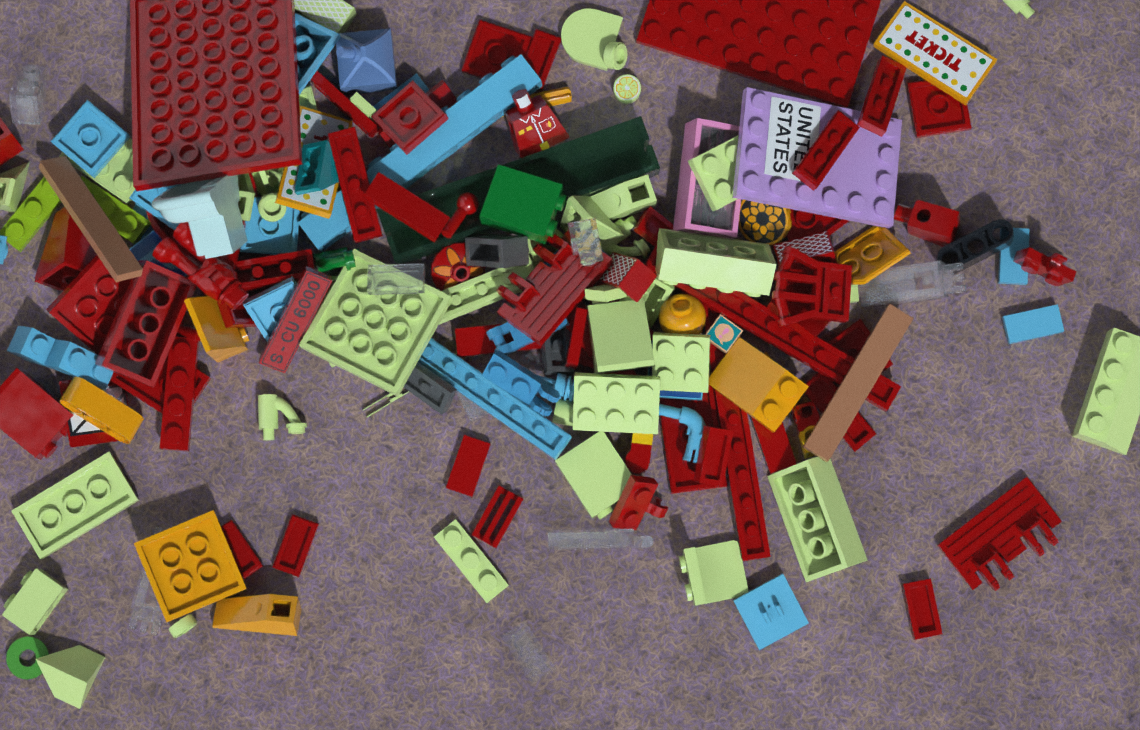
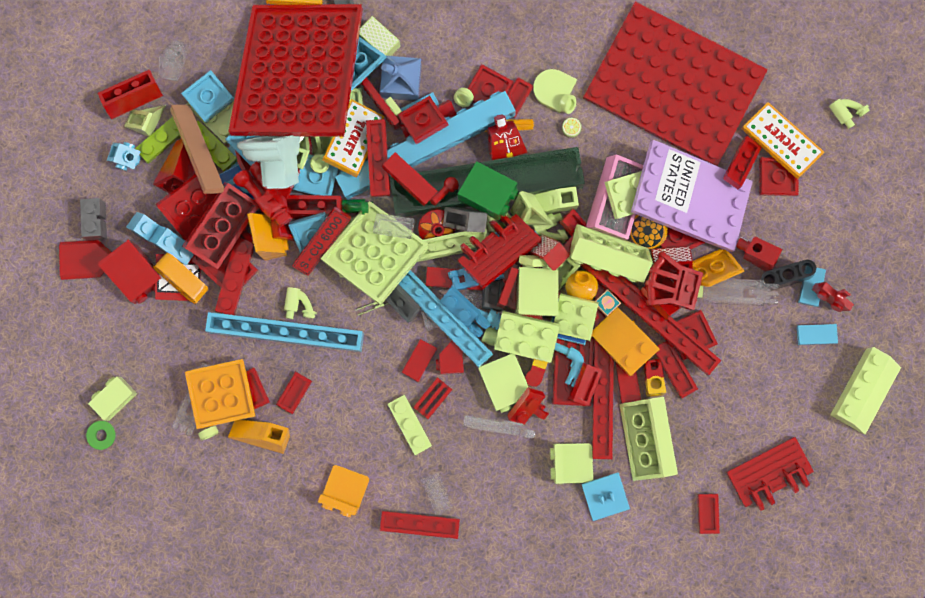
camera: 10 degrees right, 0 degrees up
(71, 673) = (127, 450): yellowish green slope -> none
(75, 505) = (152, 338): yellowish green plate -> none
(266, 460) = (284, 332): none -> medium azure brick
(317, 168) = (354, 142): teal slope -> none
(394, 672) = (344, 491): none -> light orange bracket
(462, 73) = (463, 97): none -> yellowish green tile
(512, 701) = (419, 524): none -> red plate
(513, 457) = (450, 360): none -> red slope
(586, 241) = (526, 223): clear brick -> none
(825, 150) = (699, 191): red tile -> none
(858, 383) = (692, 352): nougat tile -> none

